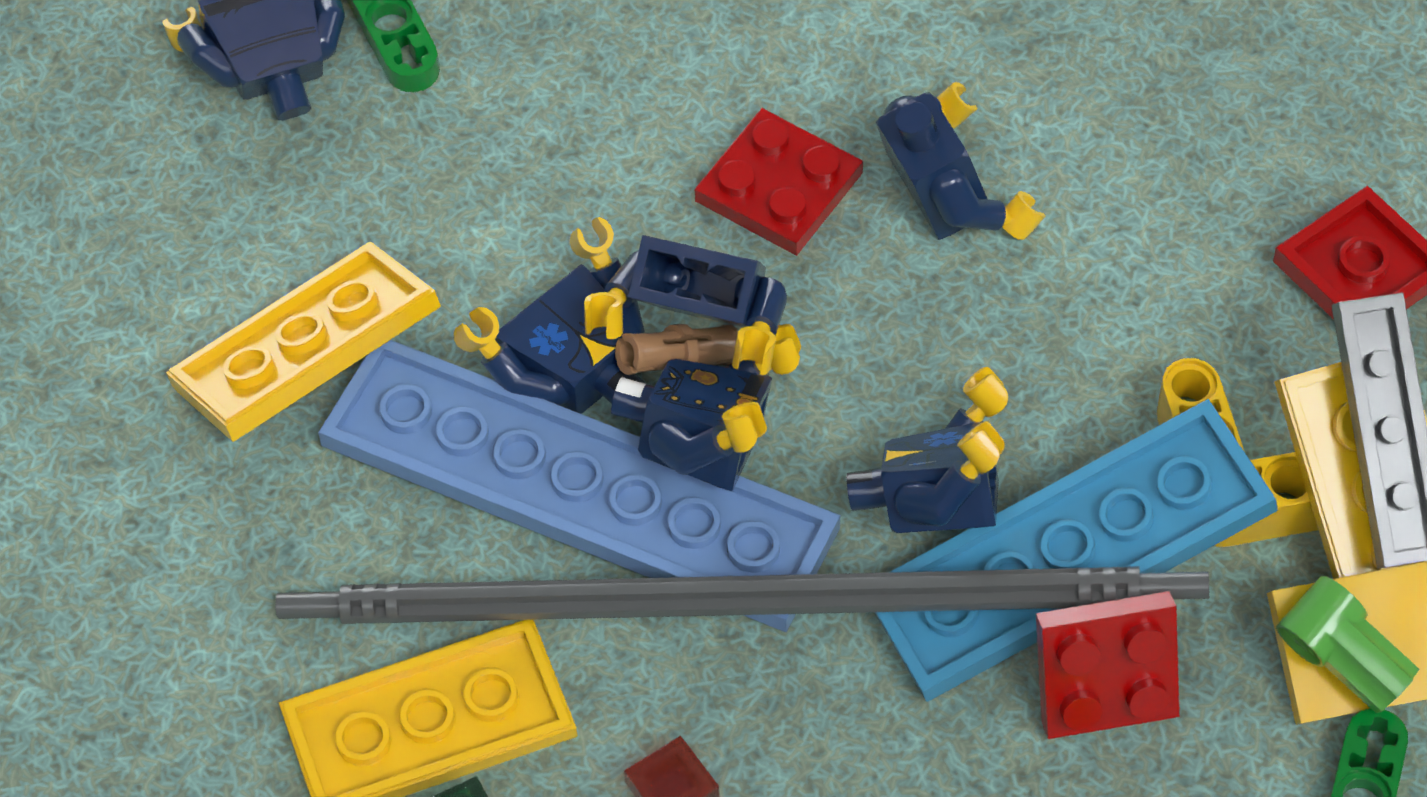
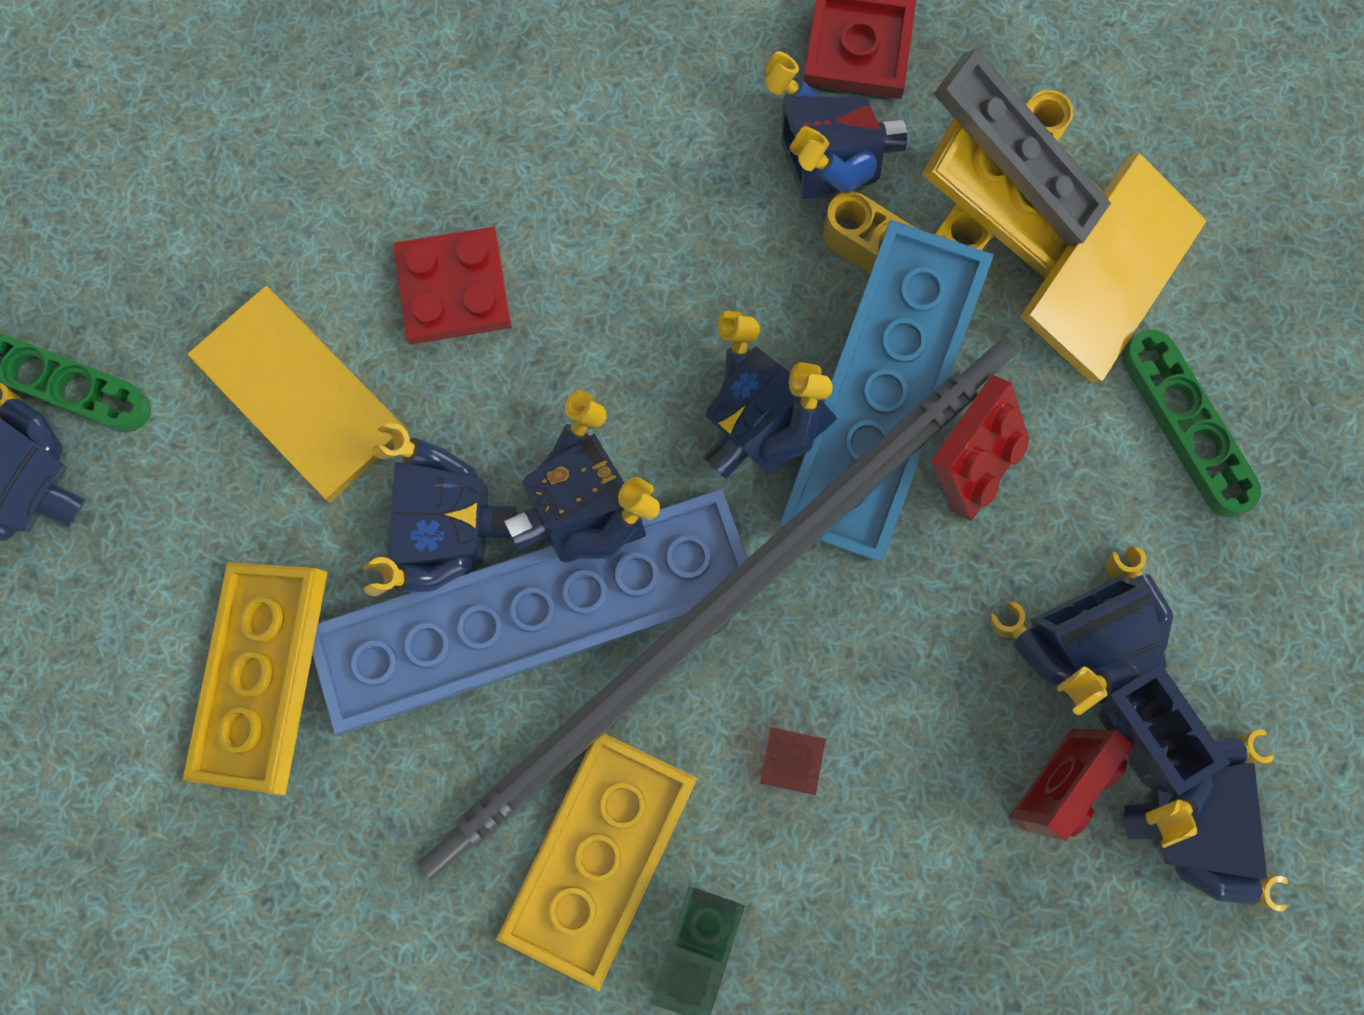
camera: 45 degrees left, 20 degrees up
(559, 160) = (296, 393): none -> yellow tile
(678, 341) = (502, 487): medium nougat pin -> none
(697, 285) = (497, 414): dark blue torso -> none
(939, 171) = (552, 190): dark blue torso -> none
(1236, 307) = (829, 140): none -> torso
(1333, 632) = (1093, 312): bright green piece -> none

